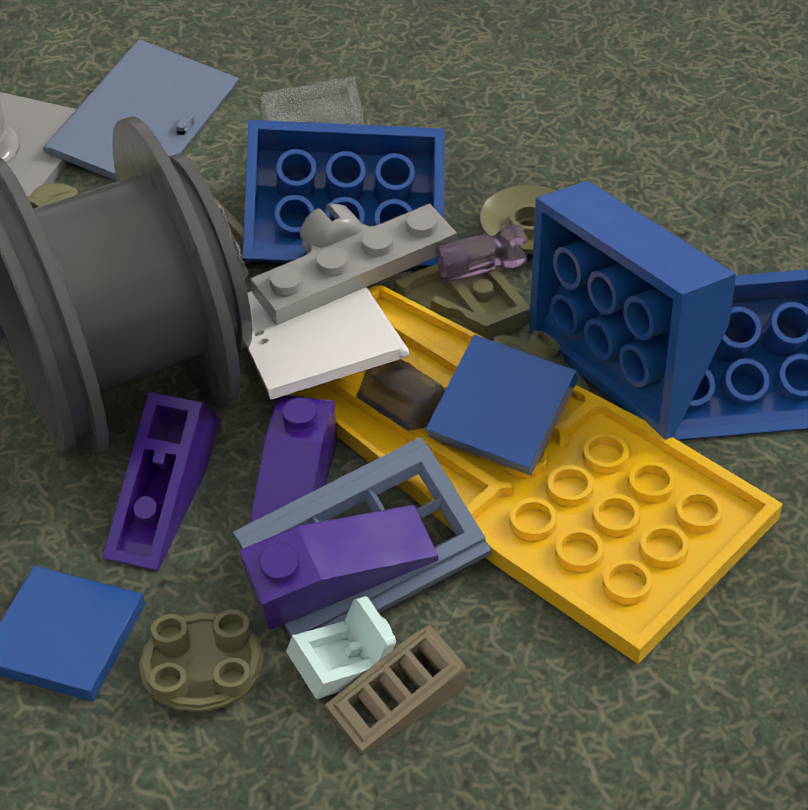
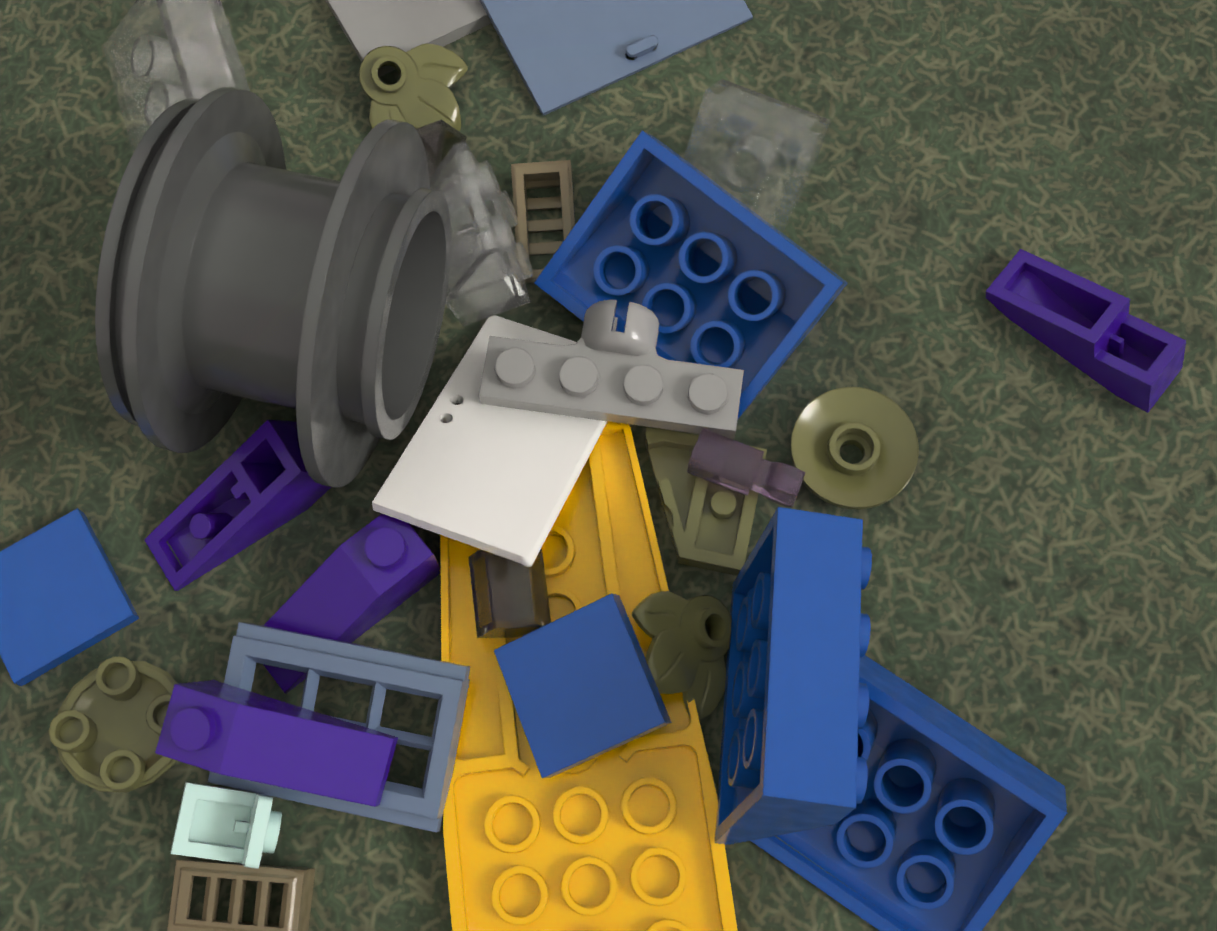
camera: 40 degrees right, 25 degrees up
(596, 98) = (1089, 328): none -> dark purple slope

